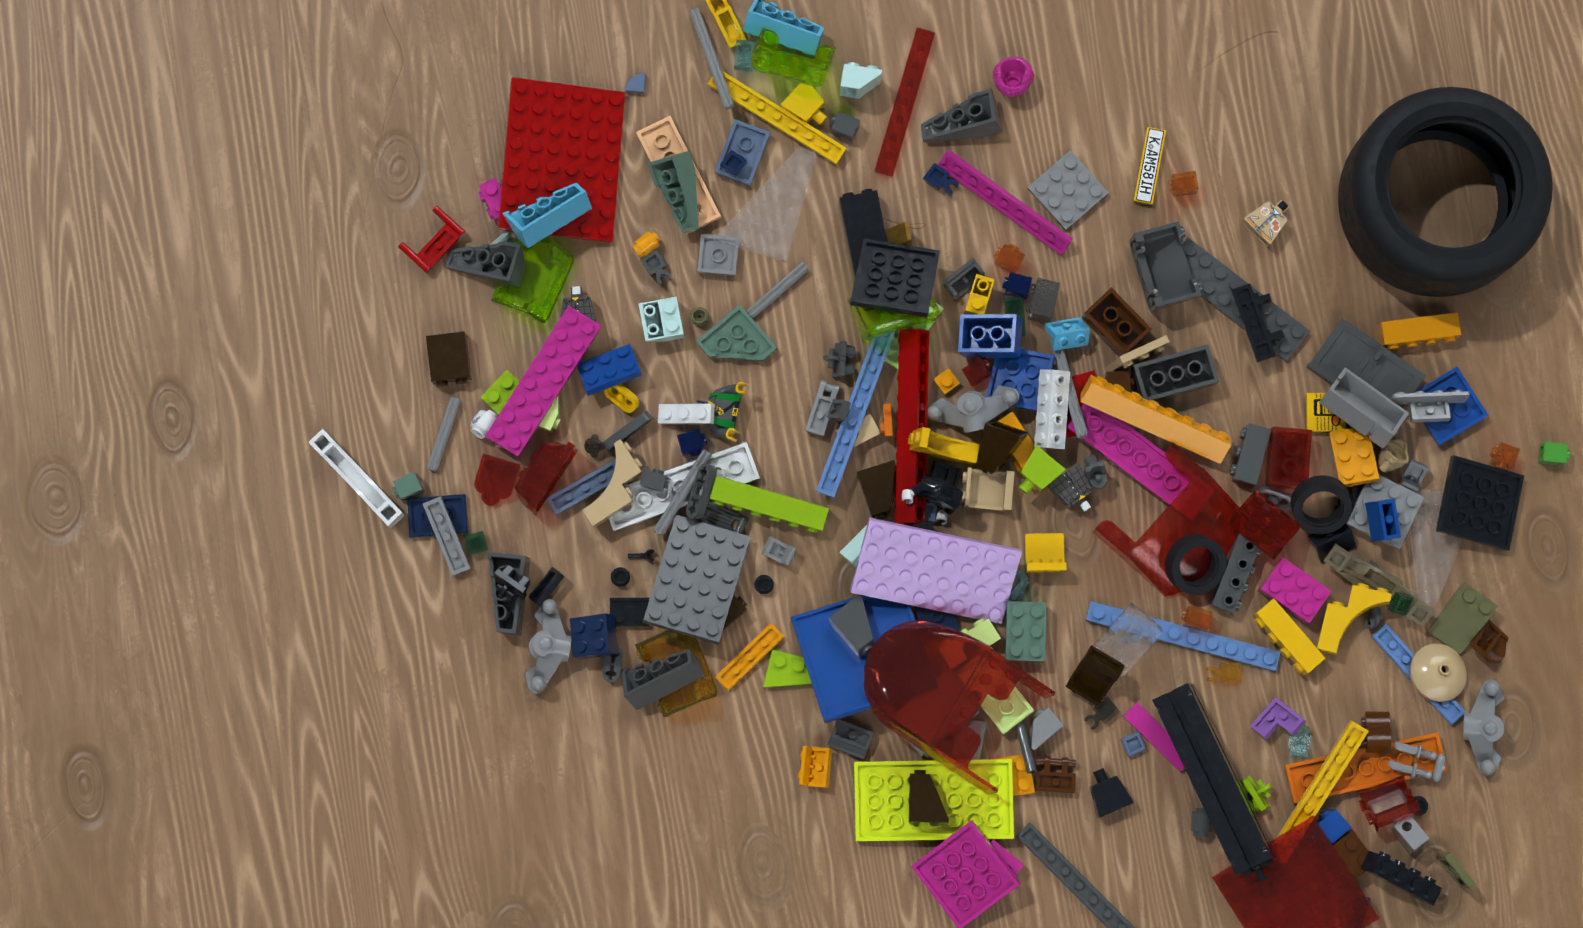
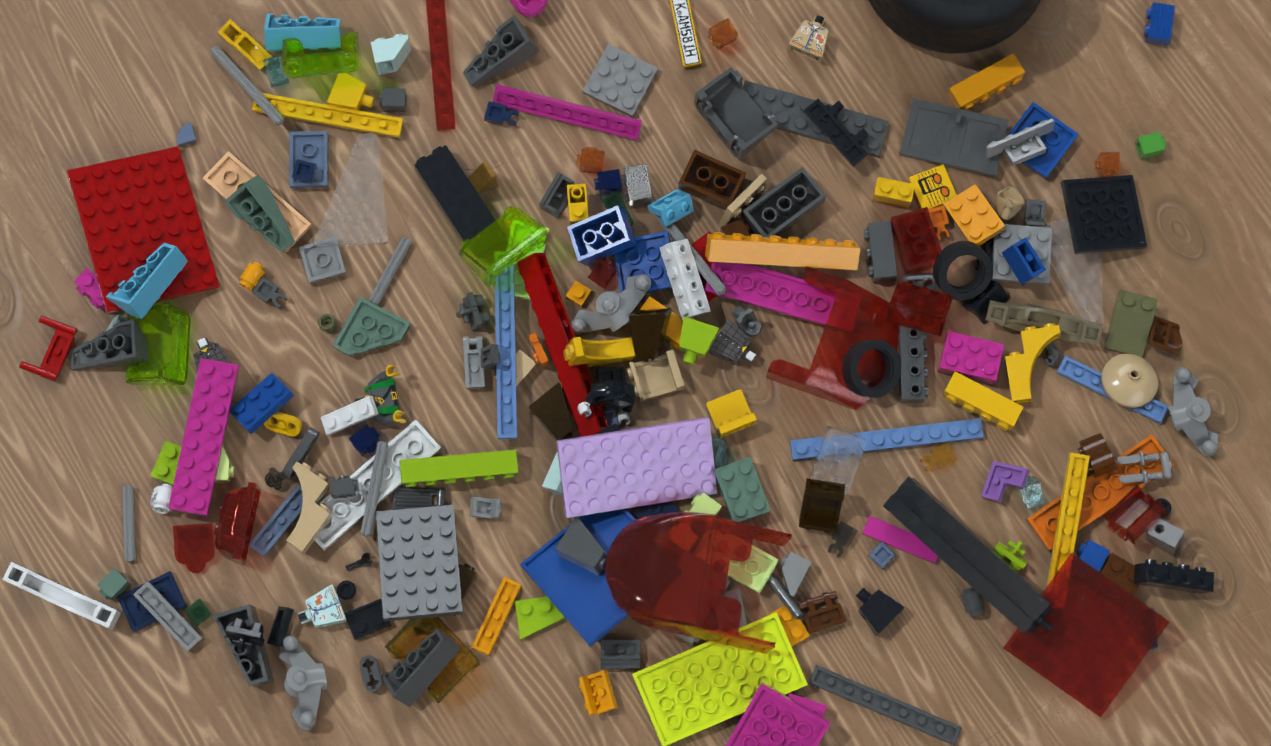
camera: 25 degrees left, 5 degrees down
(448, 358) = (106, 451): dark brown brick -> none
(592, 586) = (323, 609): none -> light aqua torso
(593, 636) = (343, 654): dark blue brick -> none
(661, 320) = (293, 339): light aqua slope -> none
(693, 504) = (391, 461): dark grey beam -> none
(763, 584) = (483, 544): black plate -> none
(895, 278) = (494, 215): black plate -> none
(924, 800) = (711, 681): dark brown slope -> none
(1196, 618) = (892, 417): clear orange brick -> none
(1285, 402) = (893, 192): none -> yellow brick
(1319, 444) = (939, 219): none -> orange plate
(1364, 407) = (965, 168): light grey piece -> none
(1400, 603) = (1070, 330): clear green plate -> none
(1455, 870) = (1219, 551): olive tile -> none

